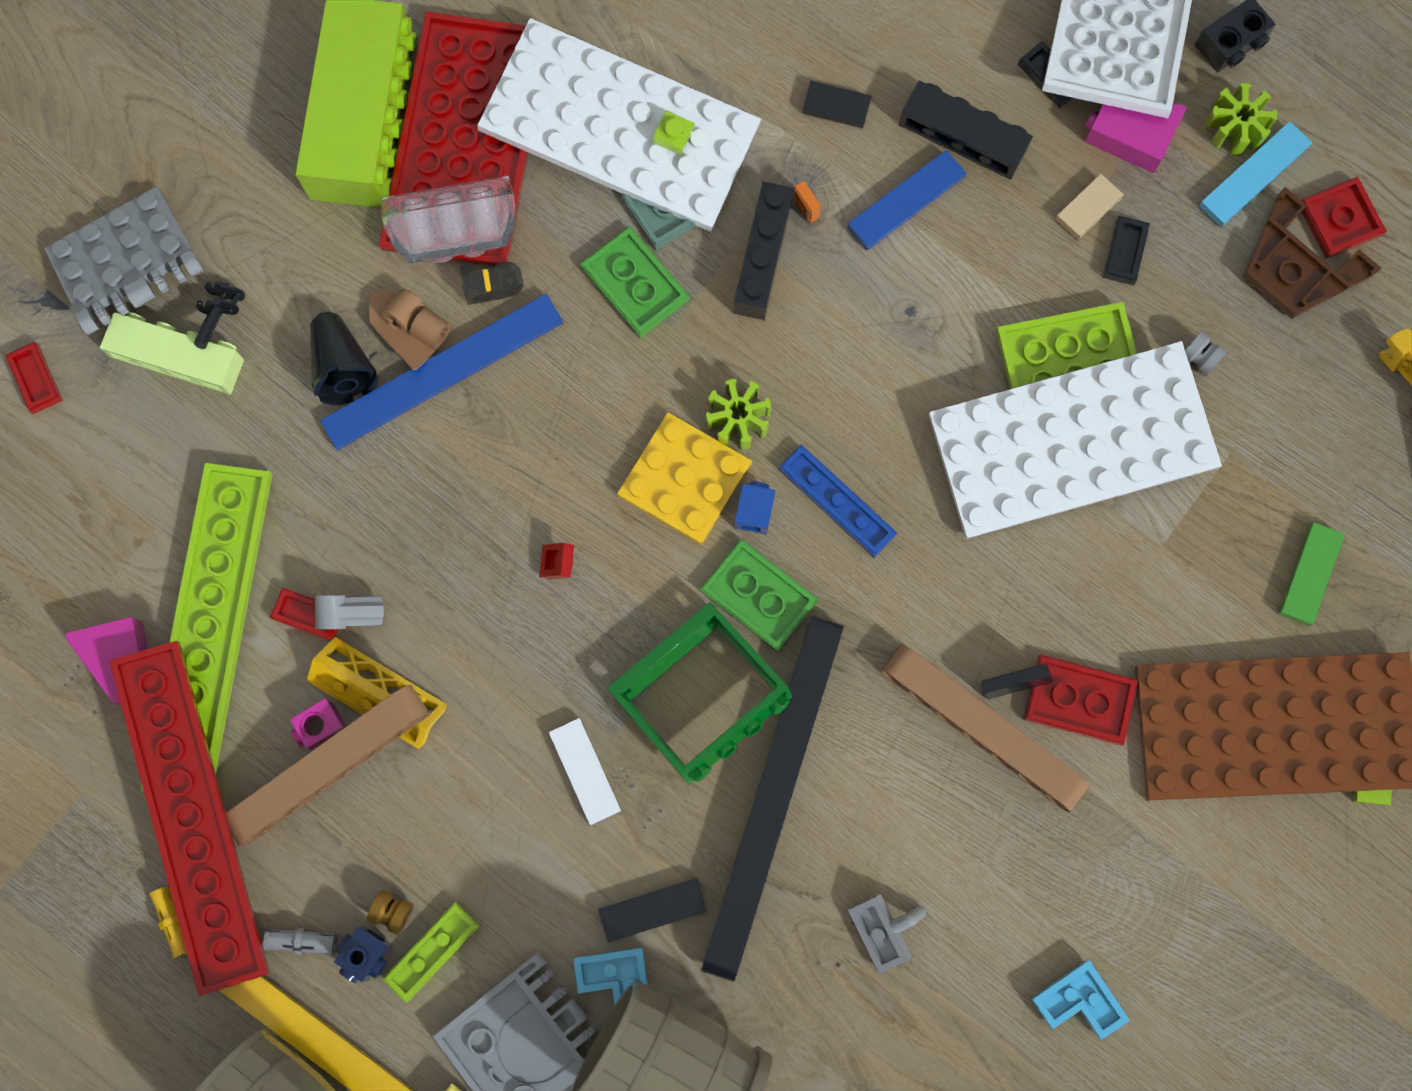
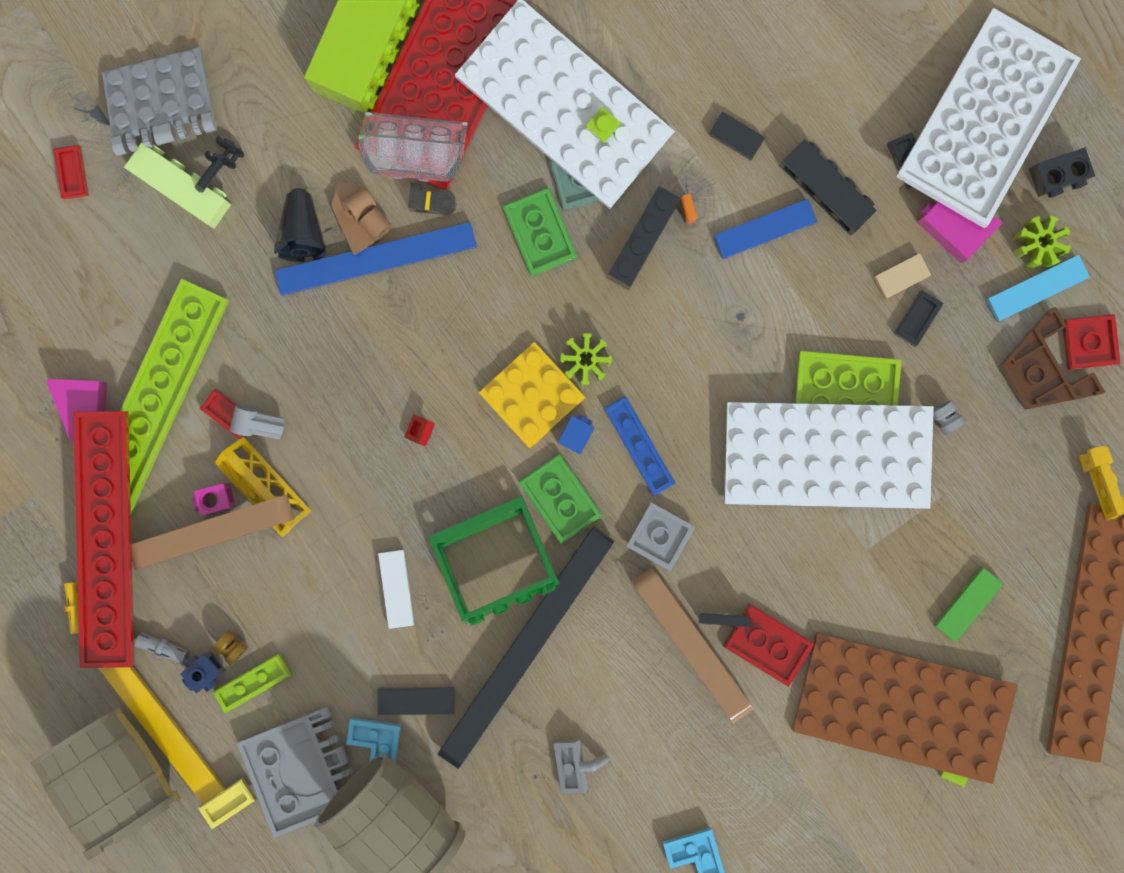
camera: 15 degrees right, 10 degrees up
(900, 603) = (660, 536): none -> light grey plate

